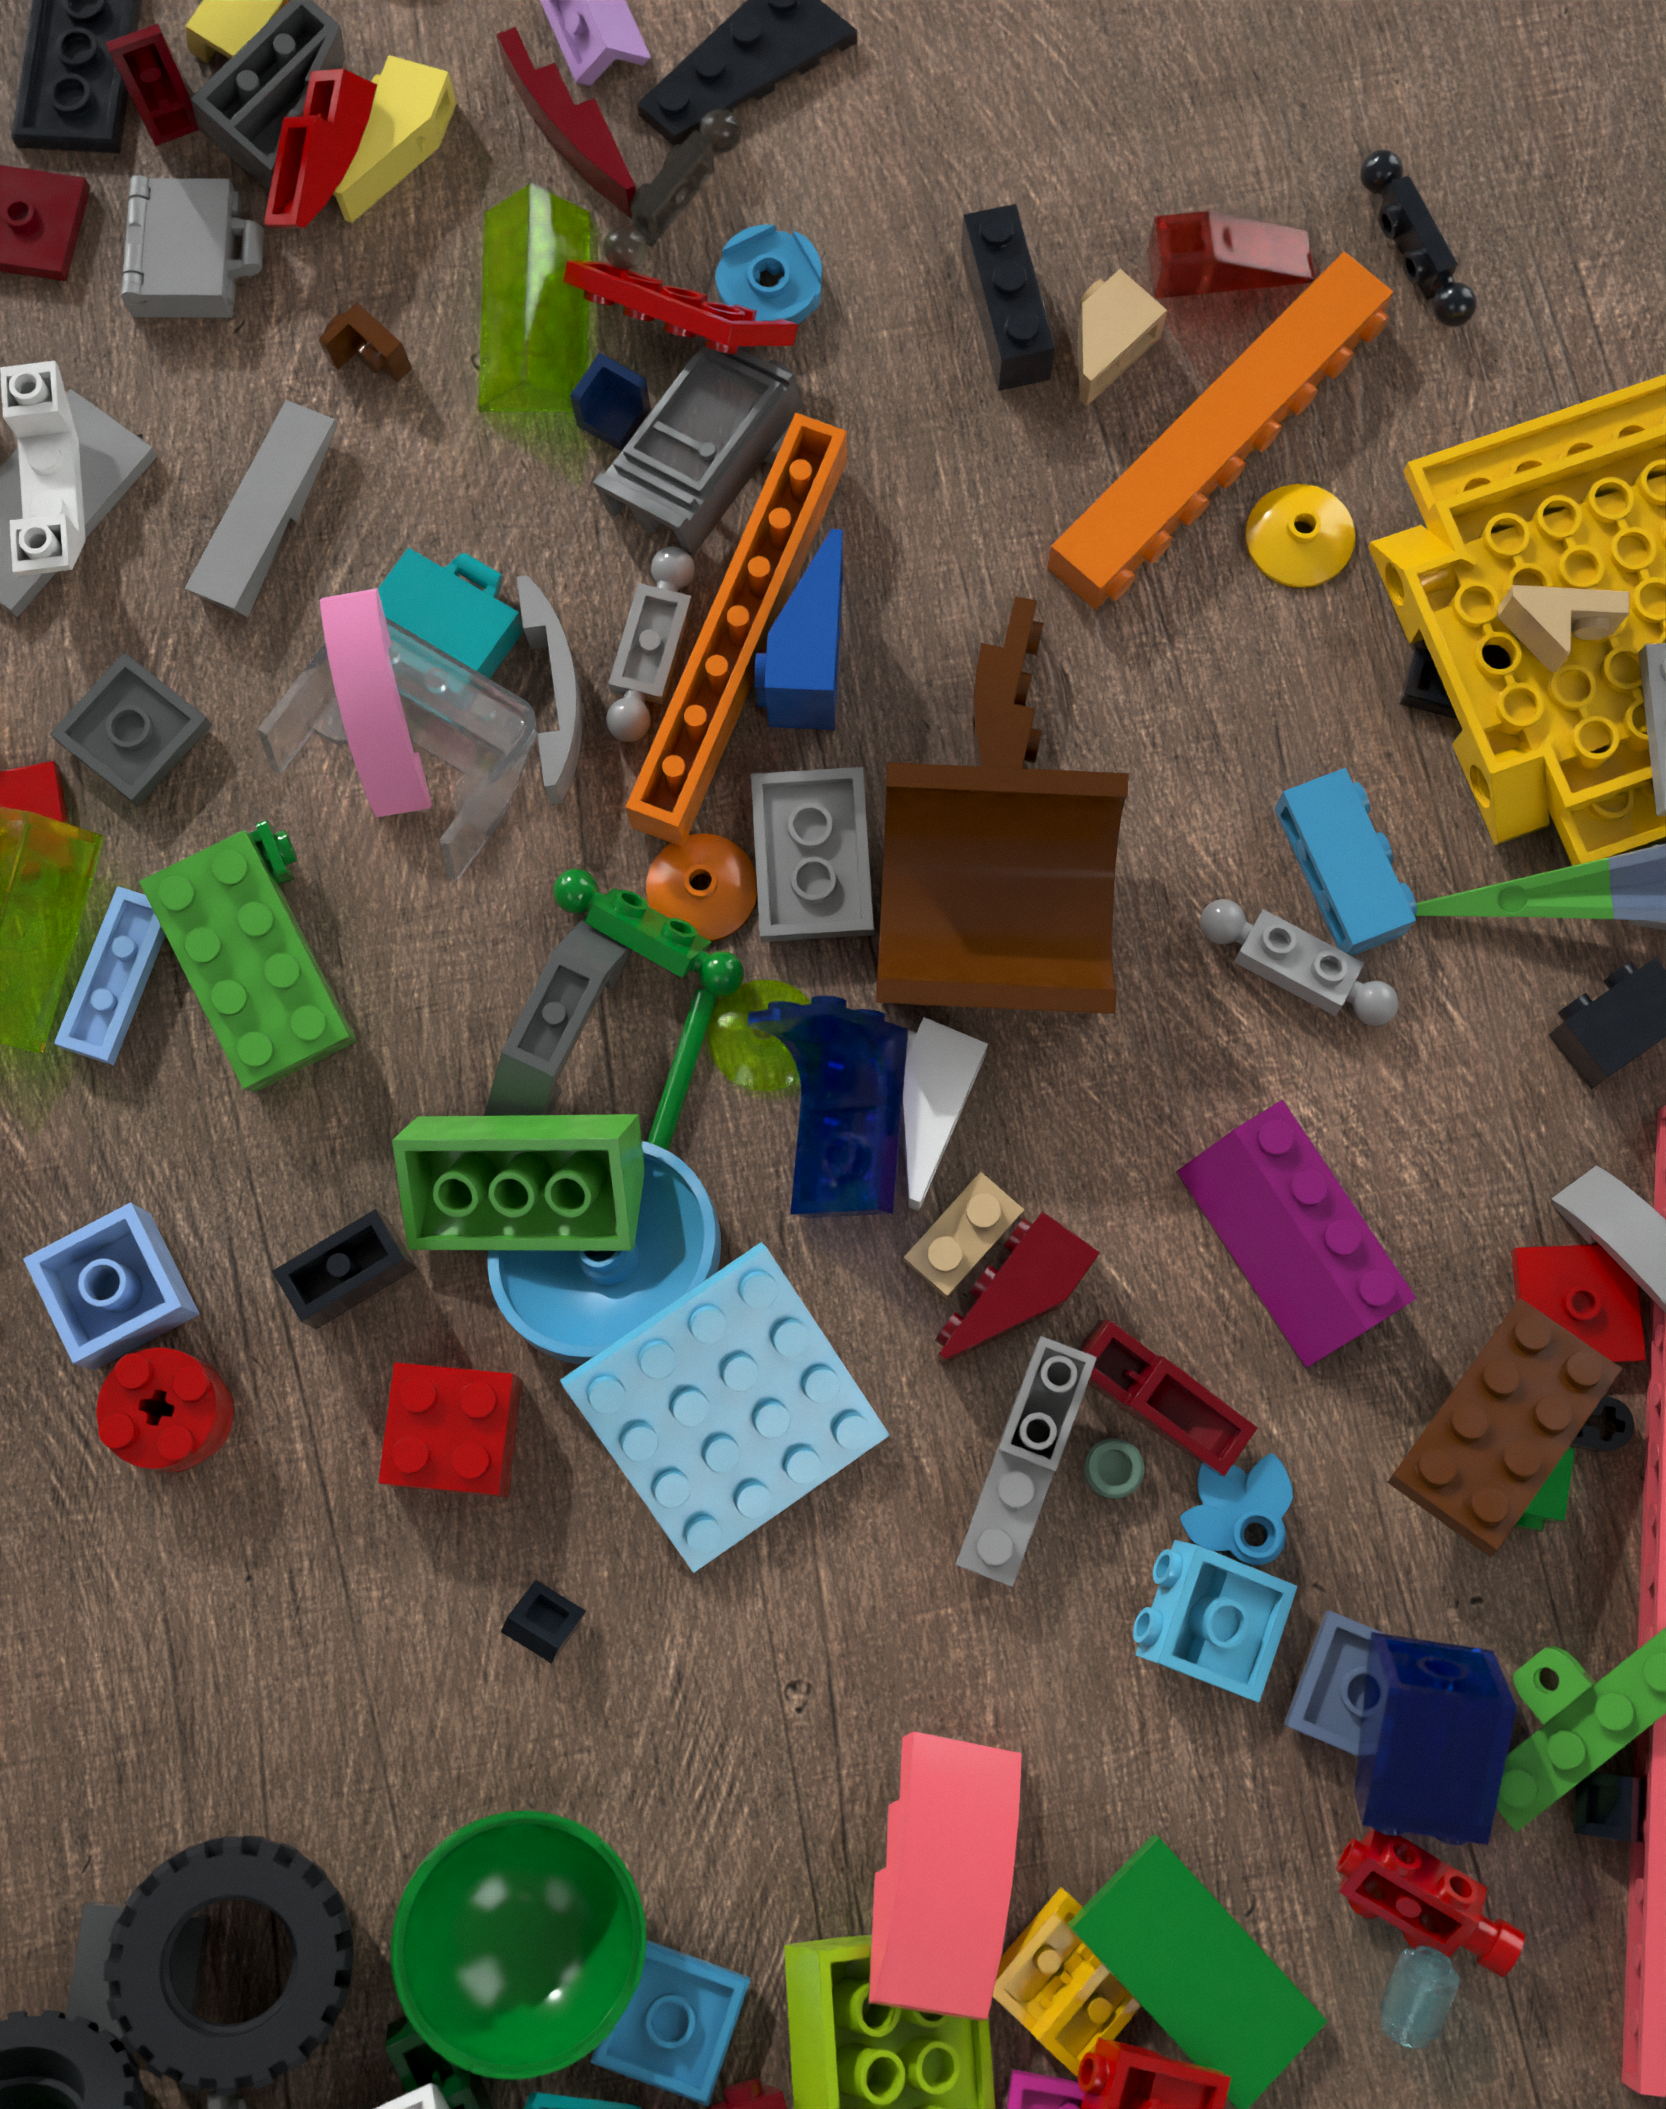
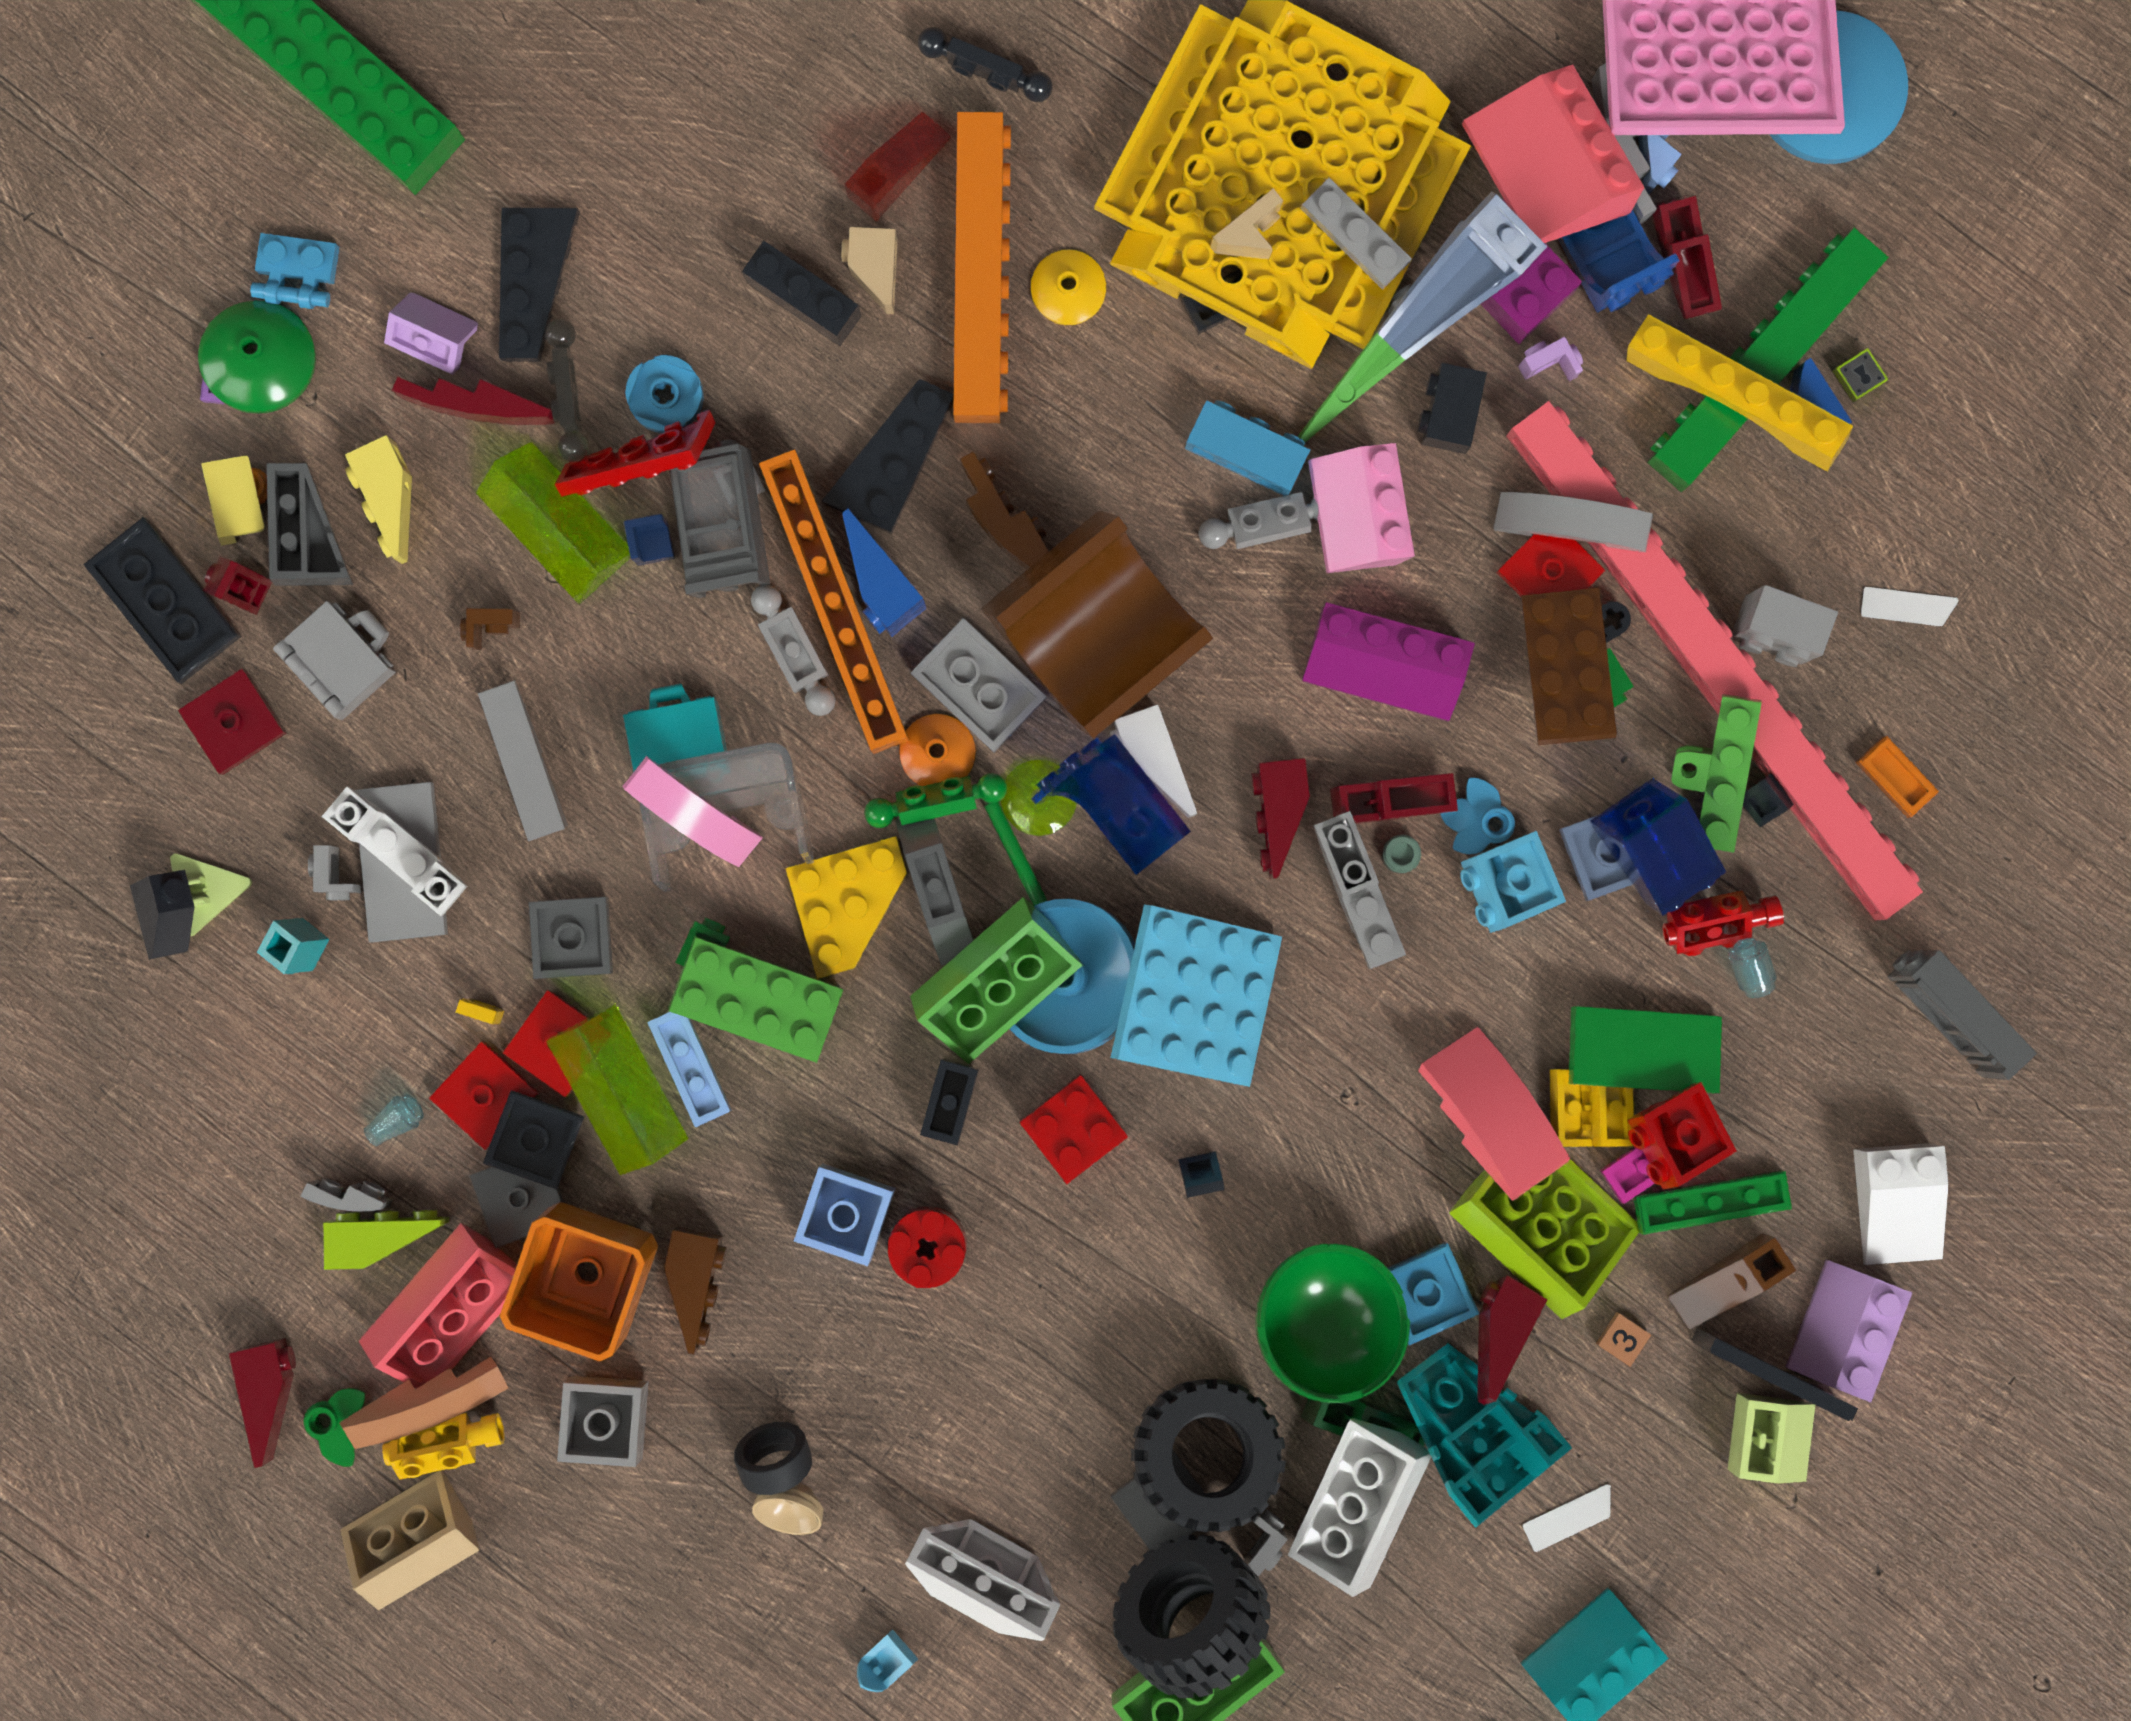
camera: 50 degrees left, 10 degrees up
(318, 146) = (363, 543): red slope -> none
(447, 955) = (845, 901): none -> yellow plate
(558, 748) = (730, 691): light grey slope -> none
(936, 548) = (890, 464): none -> black wing
(963, 1235) = (1228, 807): tan plate -> none
(1417, 1037) = (1361, 508): none -> bright pink slope

